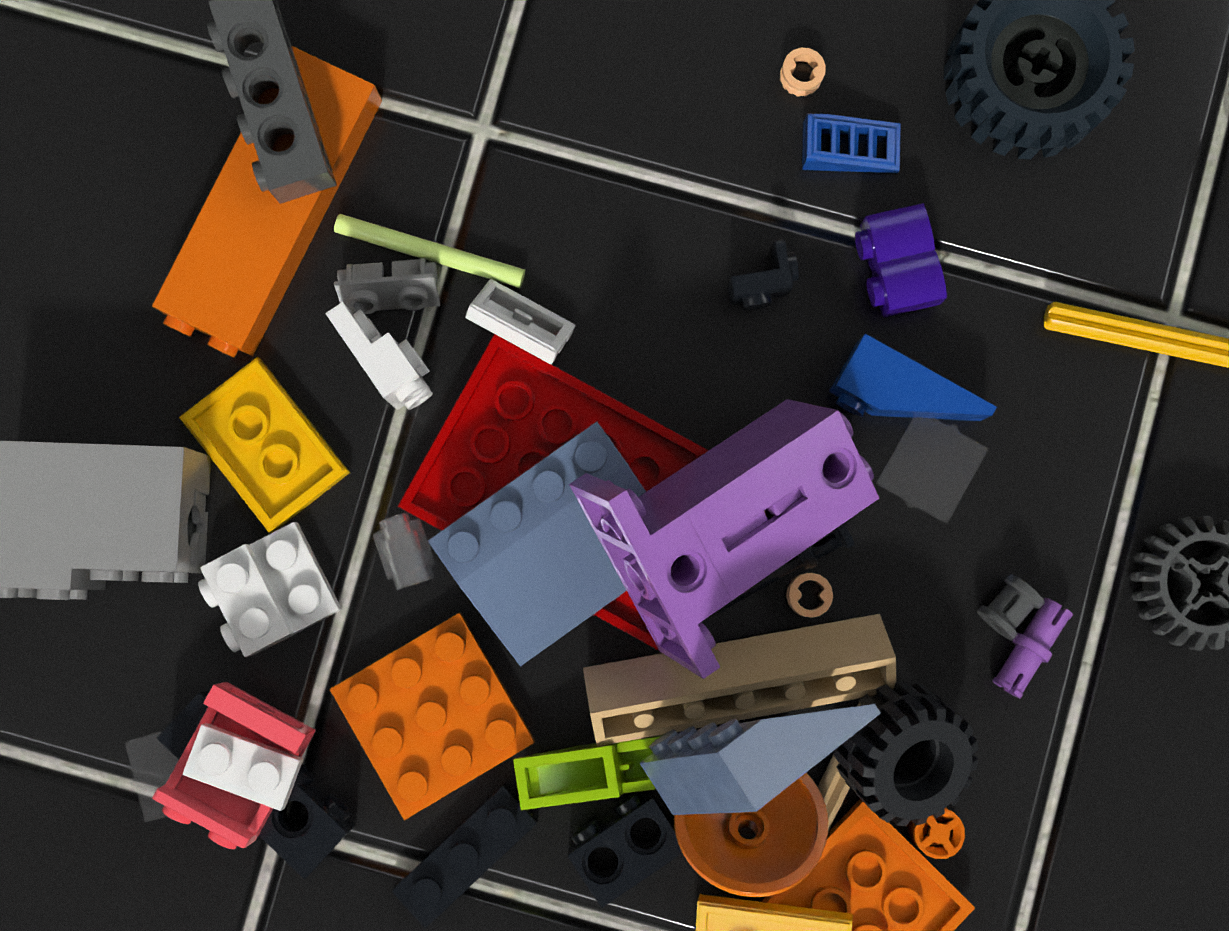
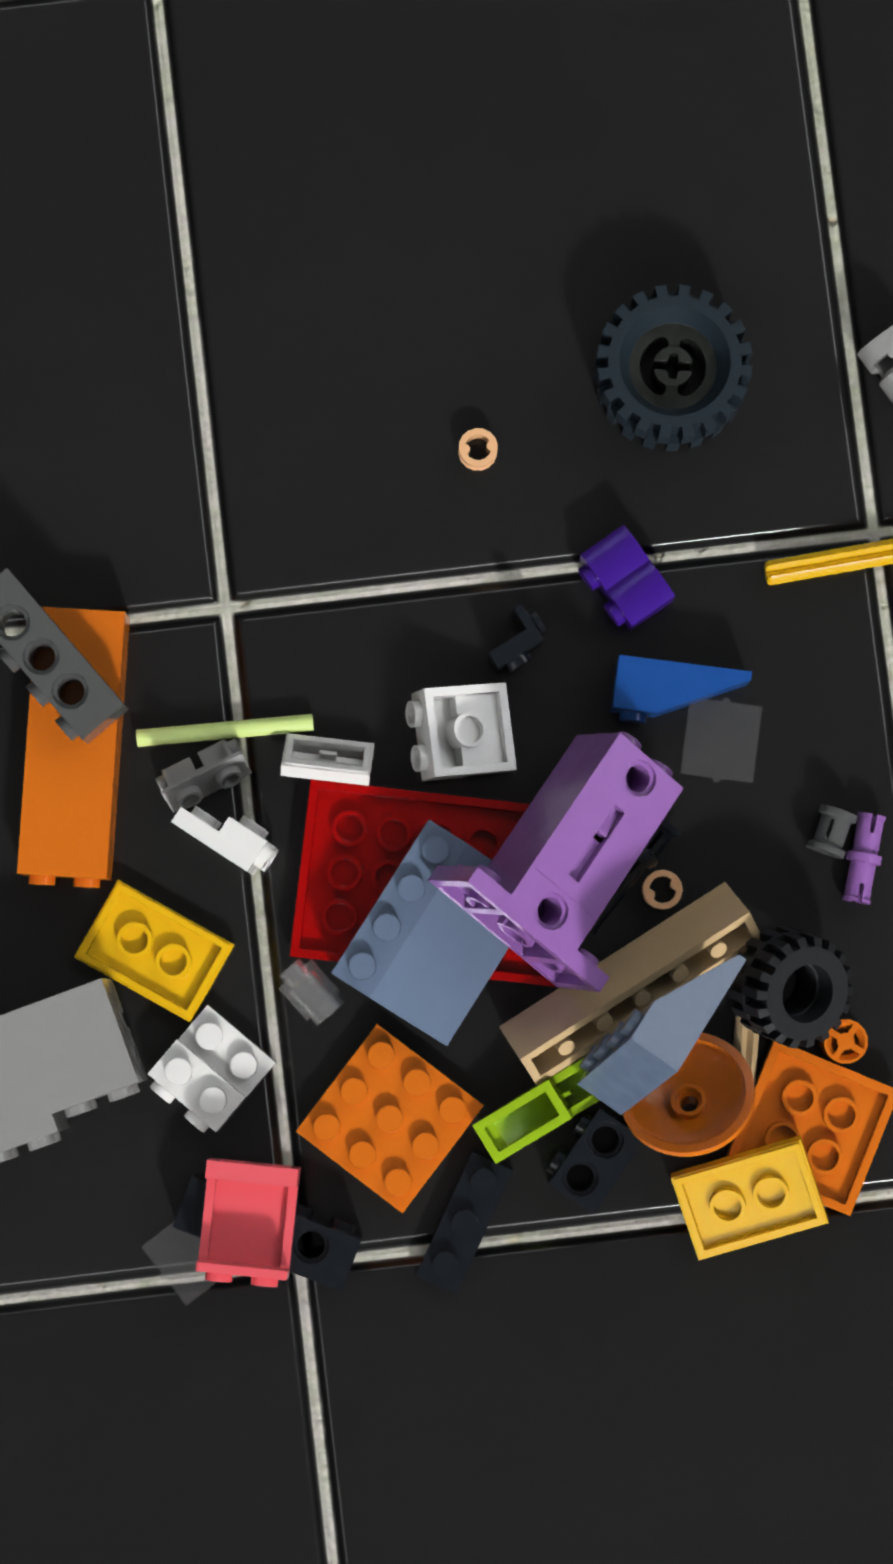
camera: 20 degrees left, 0 degrees up
(243, 766) = (256, 1217): white plate -> none
(669, 347) = (461, 731): none -> white plate
(837, 125) = (523, 485): blue slope -> none

